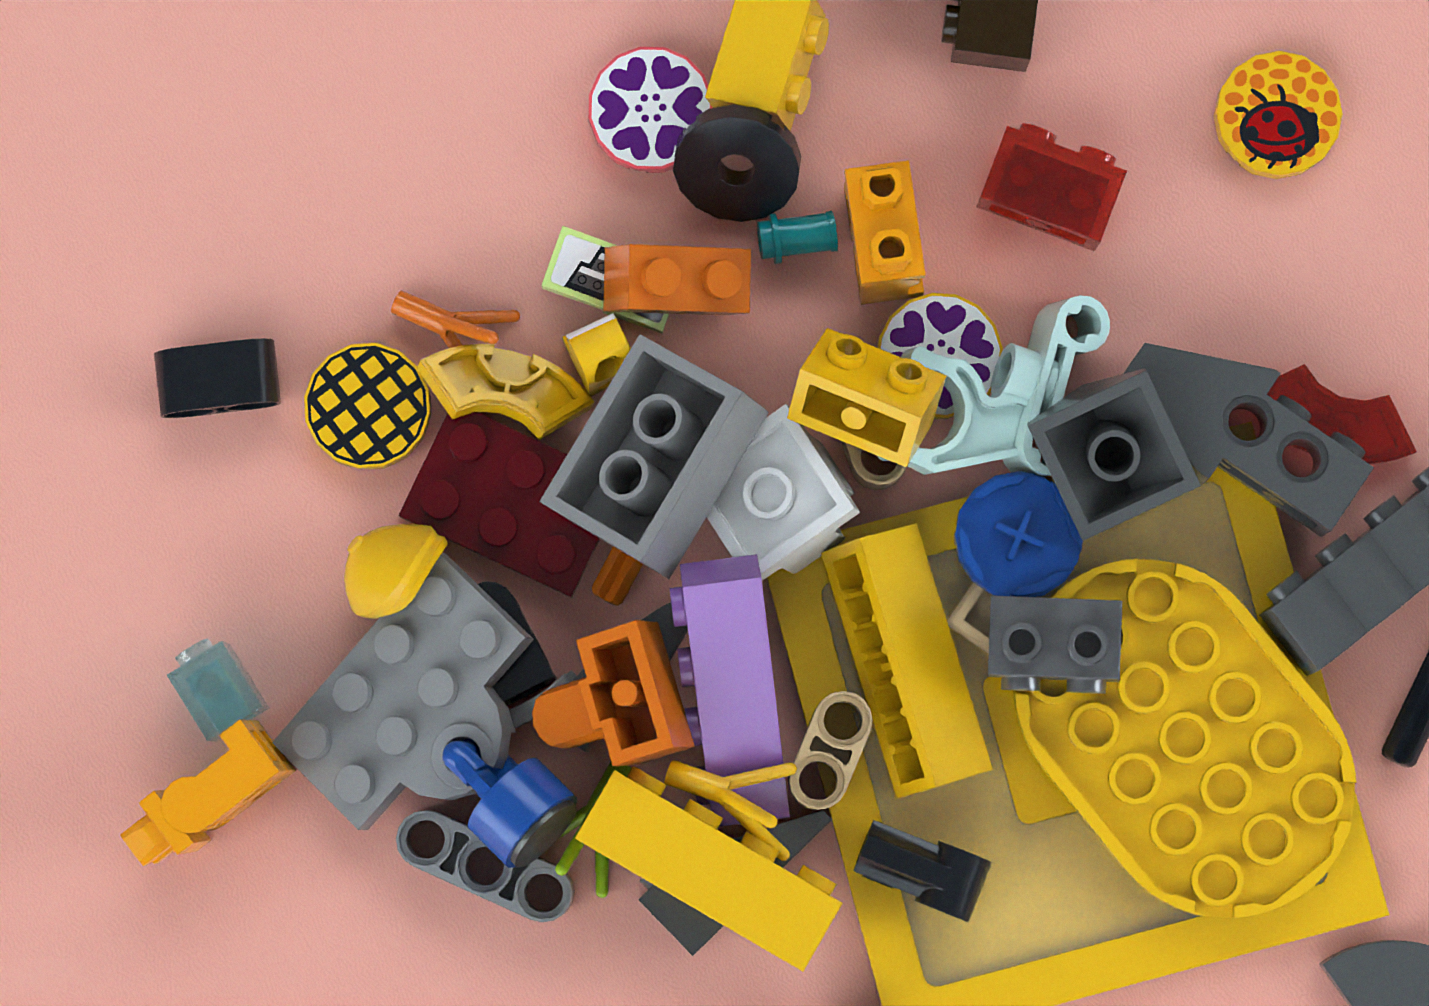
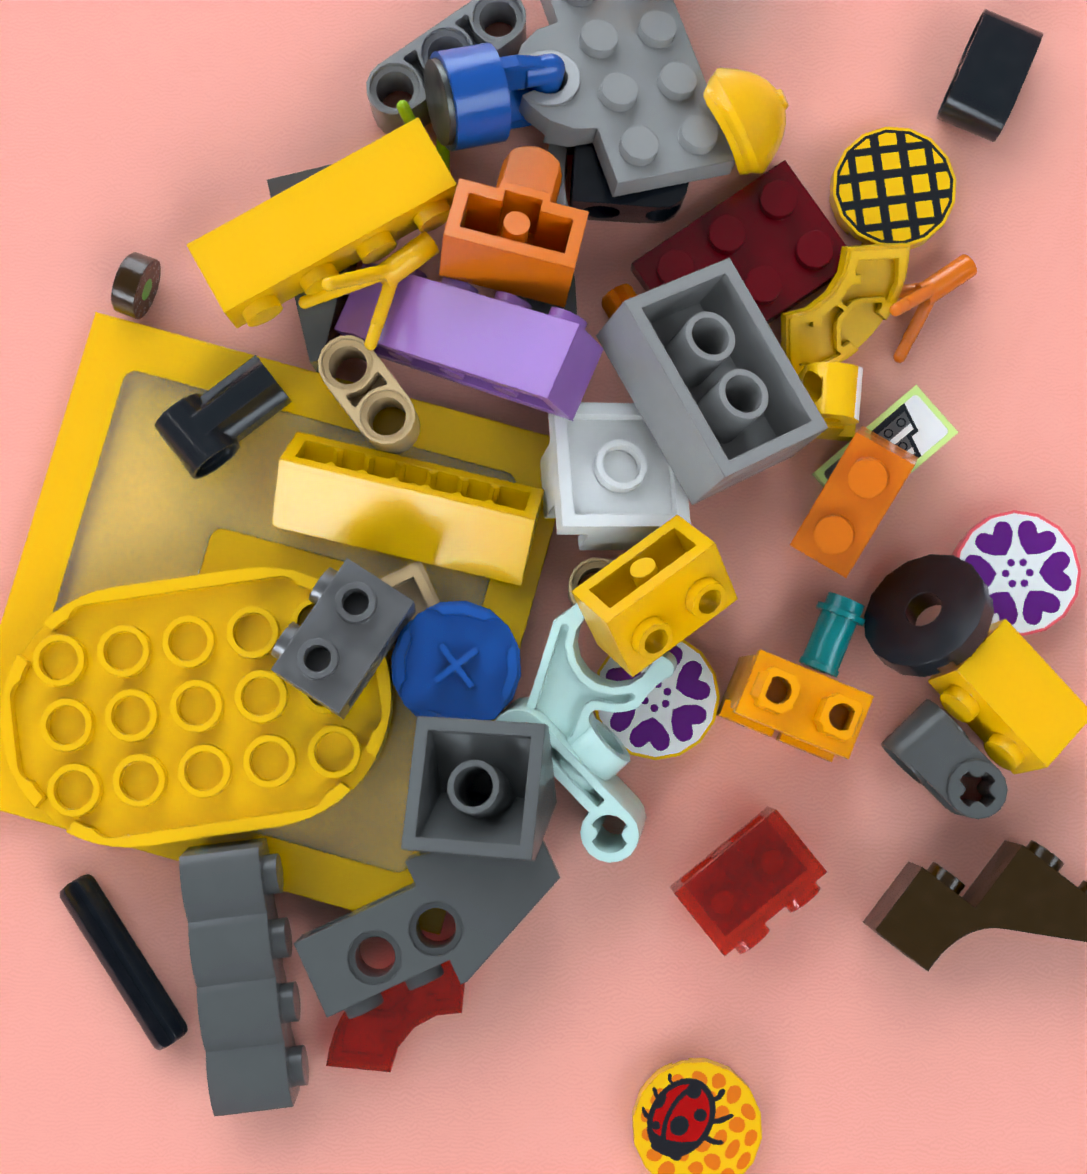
camera: 125 degrees right, 0 degrees up
(851, 86) = (939, 754): none -> dark grey piece

